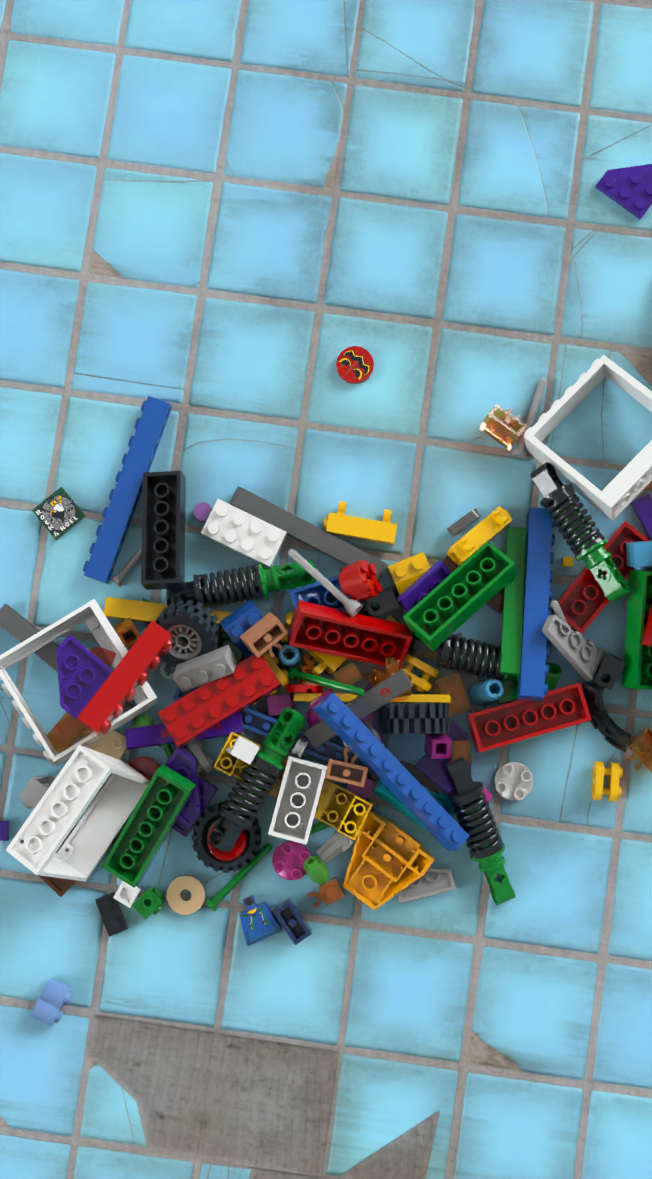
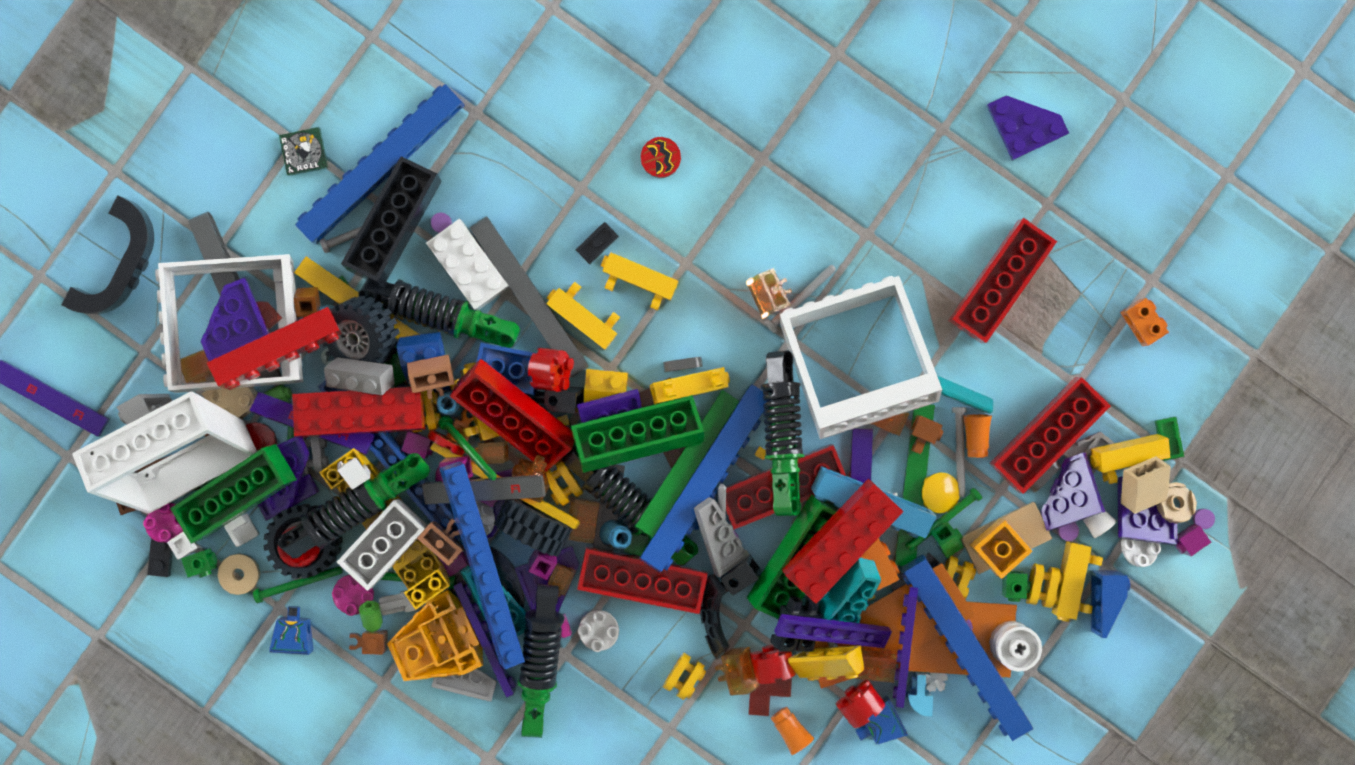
camera: 20 degrees right, 5 degrees up
(51, 1001) = (63, 606): medium blue brick -> none
(101, 885) = (162, 524): none -> dark pink dish
(169, 855) = (241, 530): none -> white panel
(292, 921) = (323, 651): dark blue brick -> none
(299, 747) = (411, 496): white bush -> none
(340, 461) = (597, 243): none -> black plate
(352, 607) = (528, 390): light grey piece -> none
(390, 469) = (638, 276): none -> yellow brick
(430, 842) = (482, 631): none -> dark purple plate

